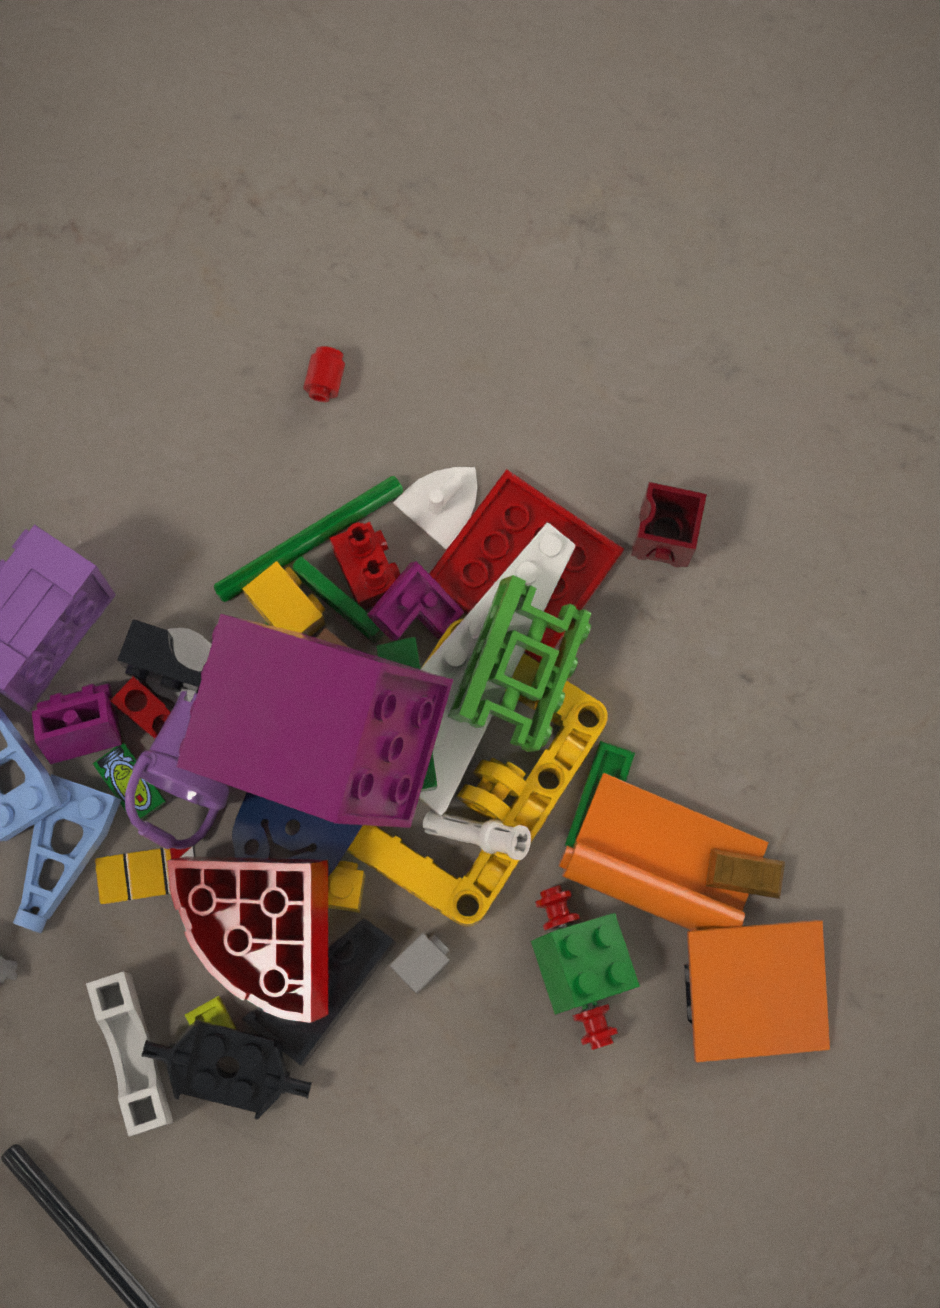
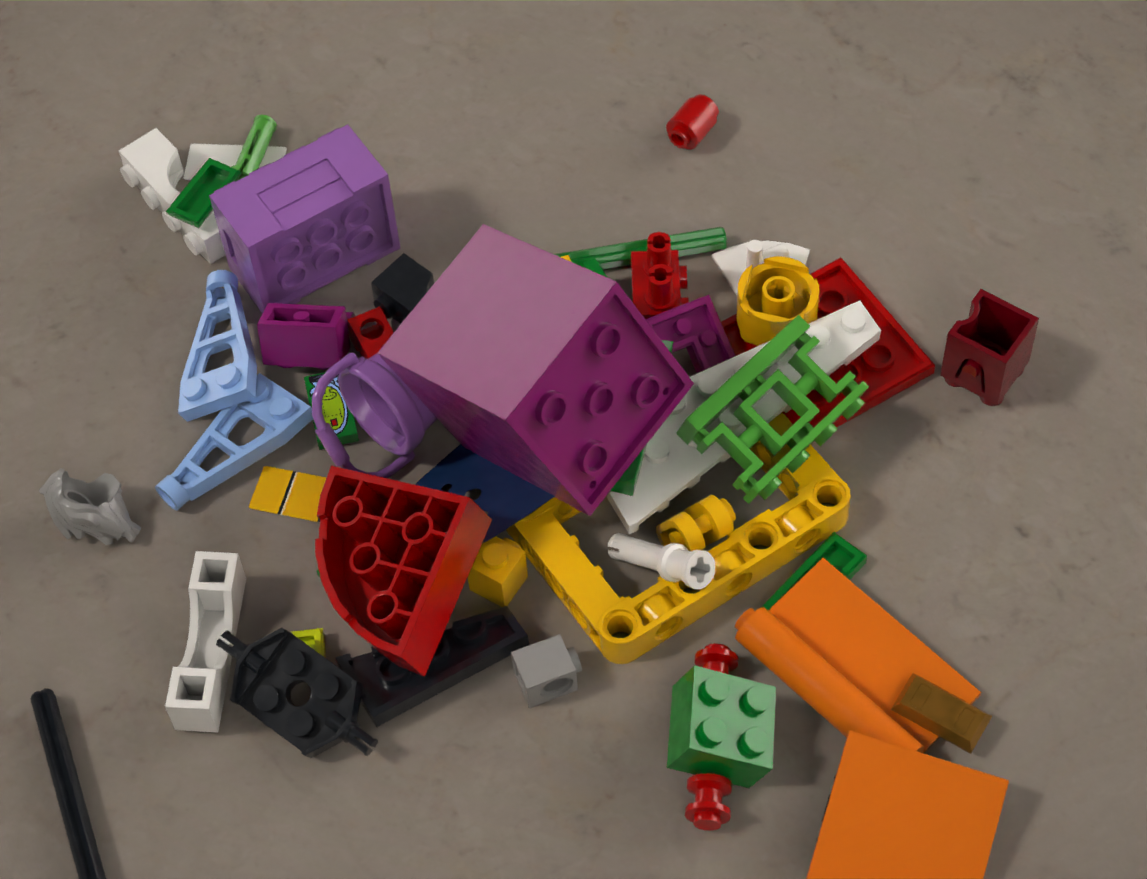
camera: 30 degrees right, 20 degrees down
(481, 527) = (773, 296): none -> yellow brick

